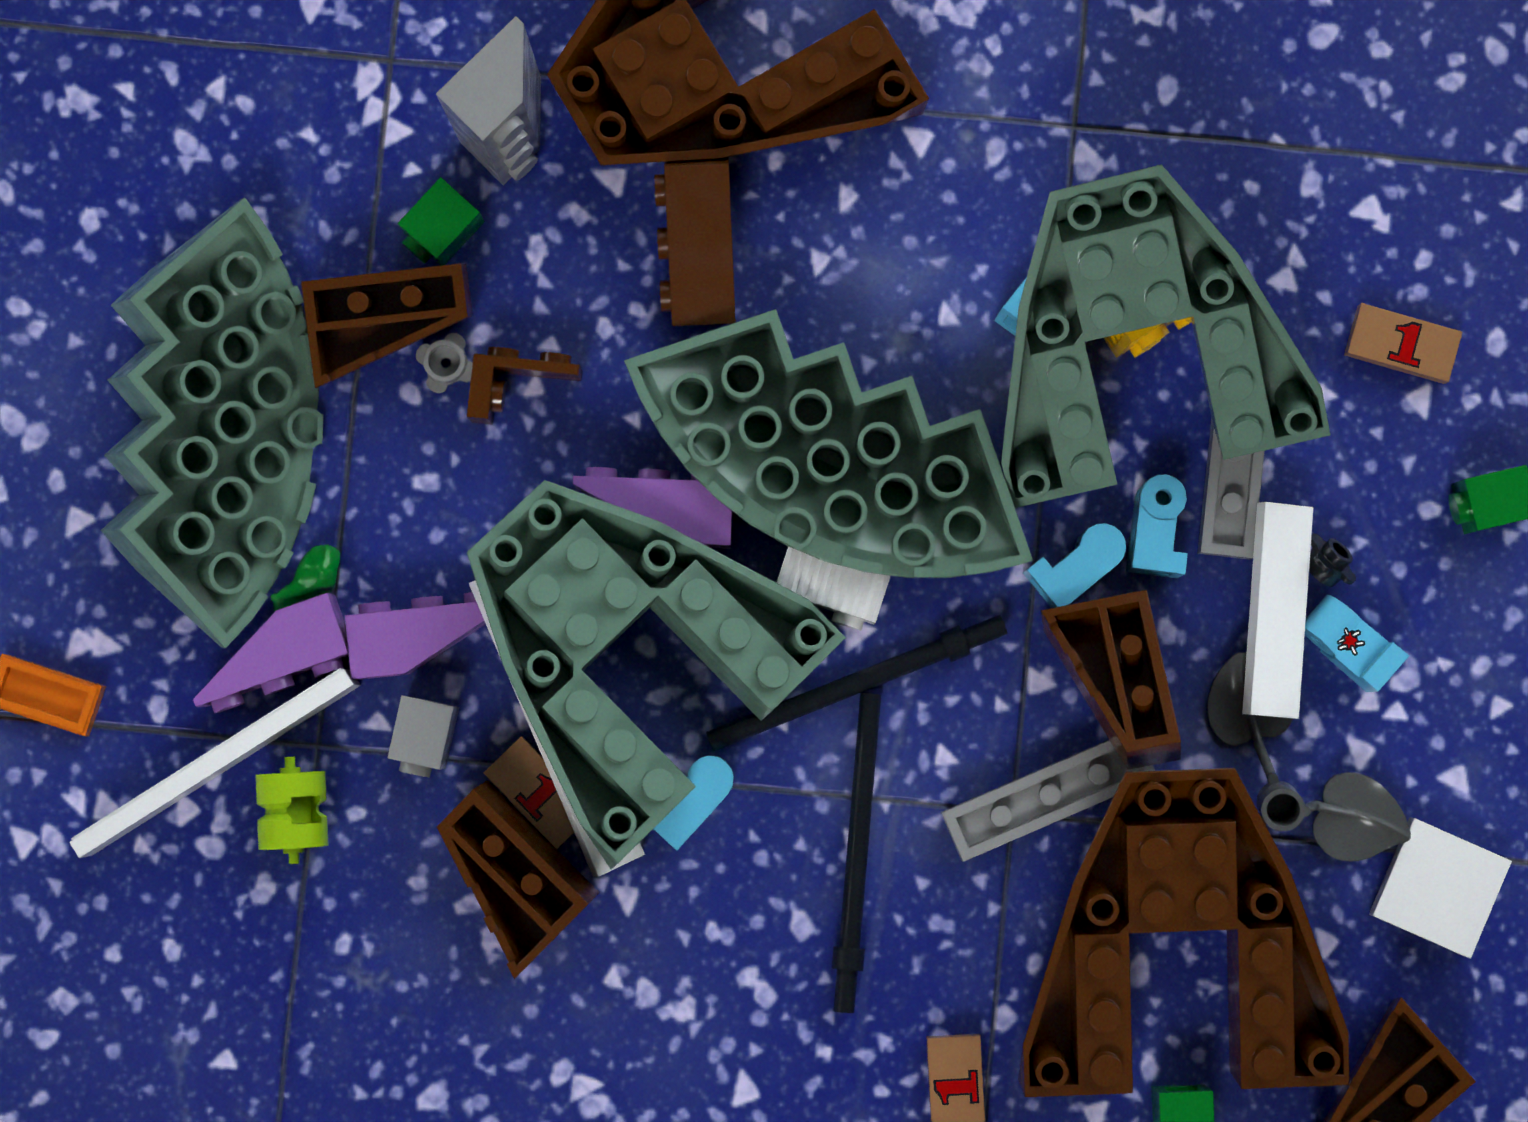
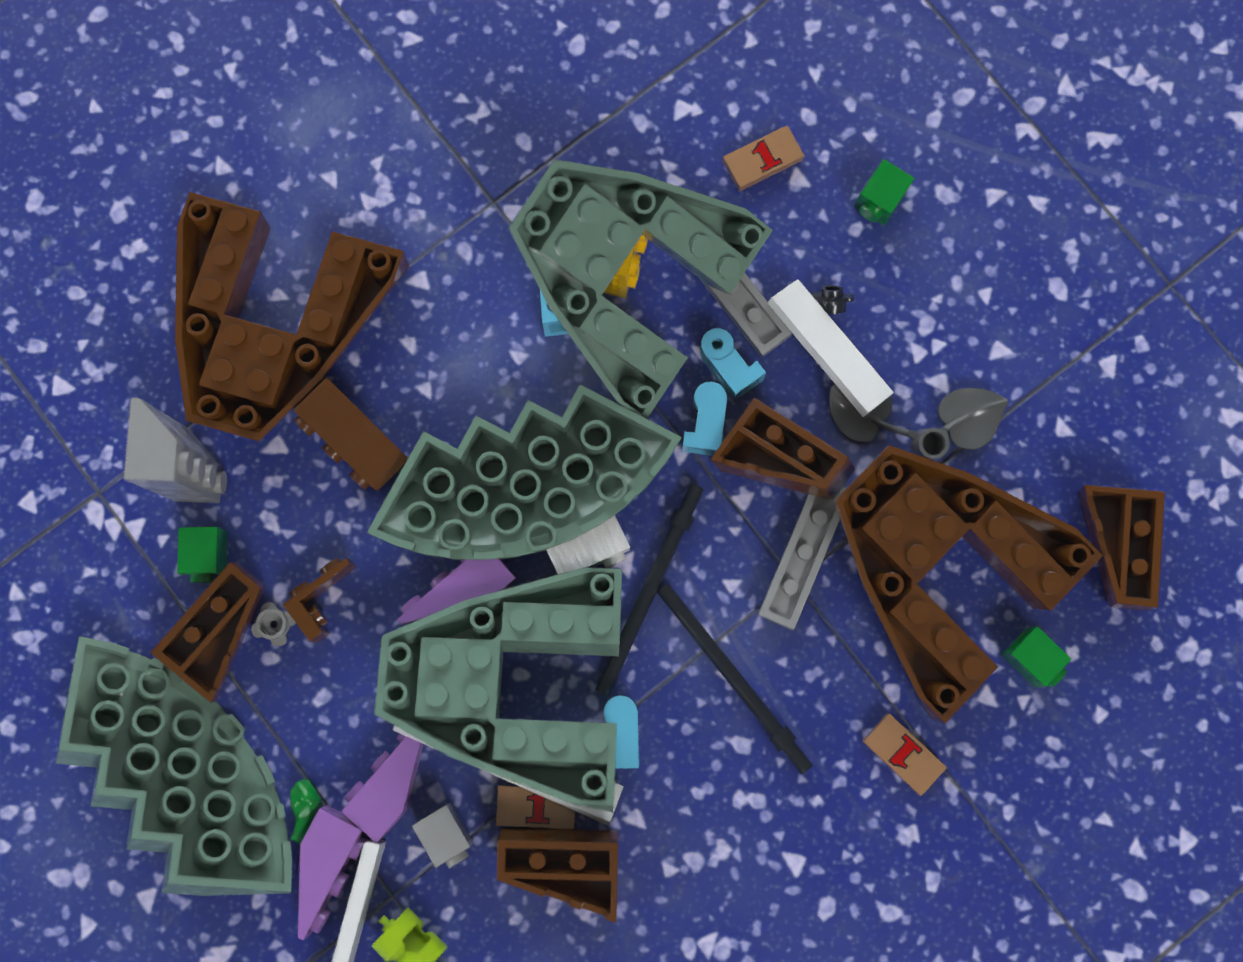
camera: 40 degrees left, 5 degrees down
(1353, 644) = (885, 330): medium azure leg -> none
(1440, 888) = (1046, 412): white tile -> none

